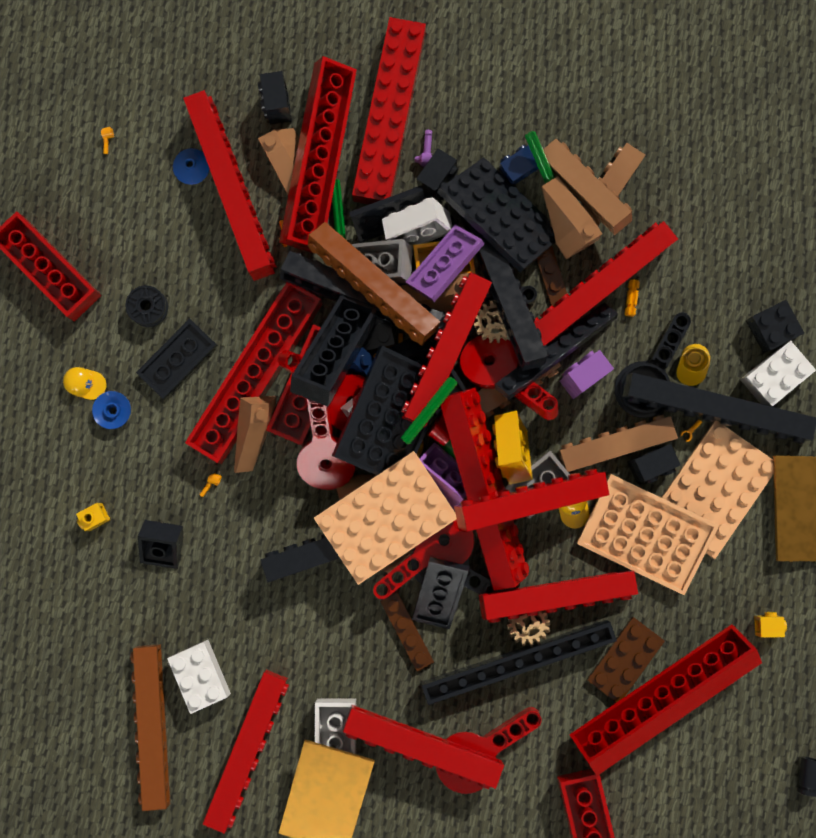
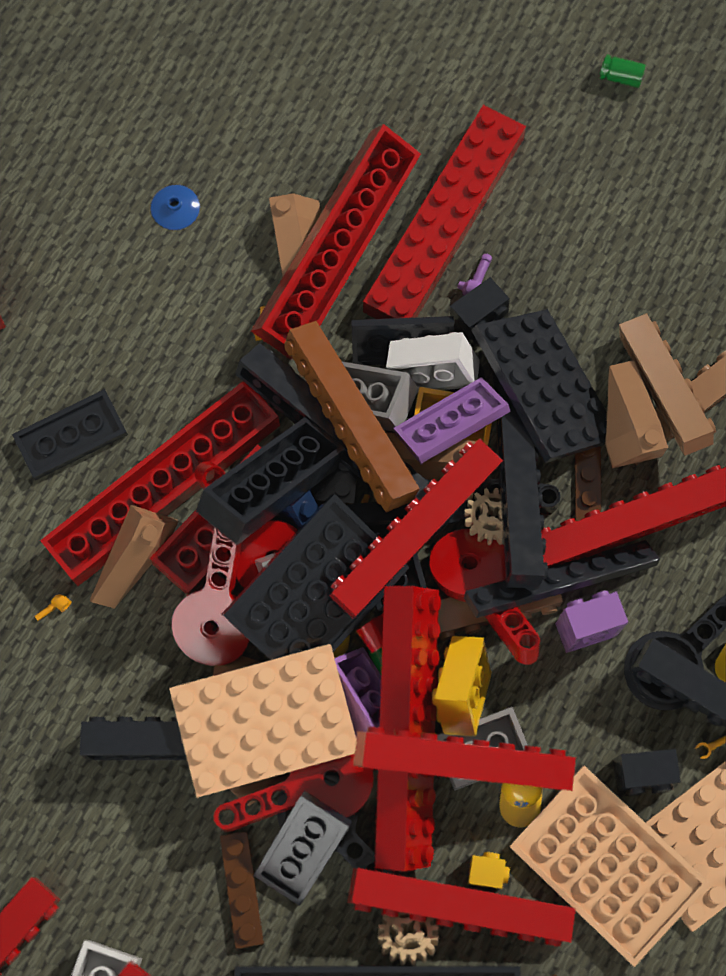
camera: 15 degrees right, 10 degrees down
(106, 133) = (85, 136): light orange hand -> none
(138, 298) = (51, 344): black wheel -> none
(230, 185) = (214, 245): red brick -> none
(274, 97) = (308, 156): black brick -> none
(338, 209) = (340, 314): green axle -> none
(429, 410) = (366, 595): green axle -> none
(518, 165) = (592, 332): dark blue brick -> none
(539, 156) = (618, 328): green axle -> none
(567, 565) = (488, 871): none -> yellow brick
(617, 444) = (605, 730): medium nougat brick -> none
(632, 297) = (685, 546): light orange axle -> none

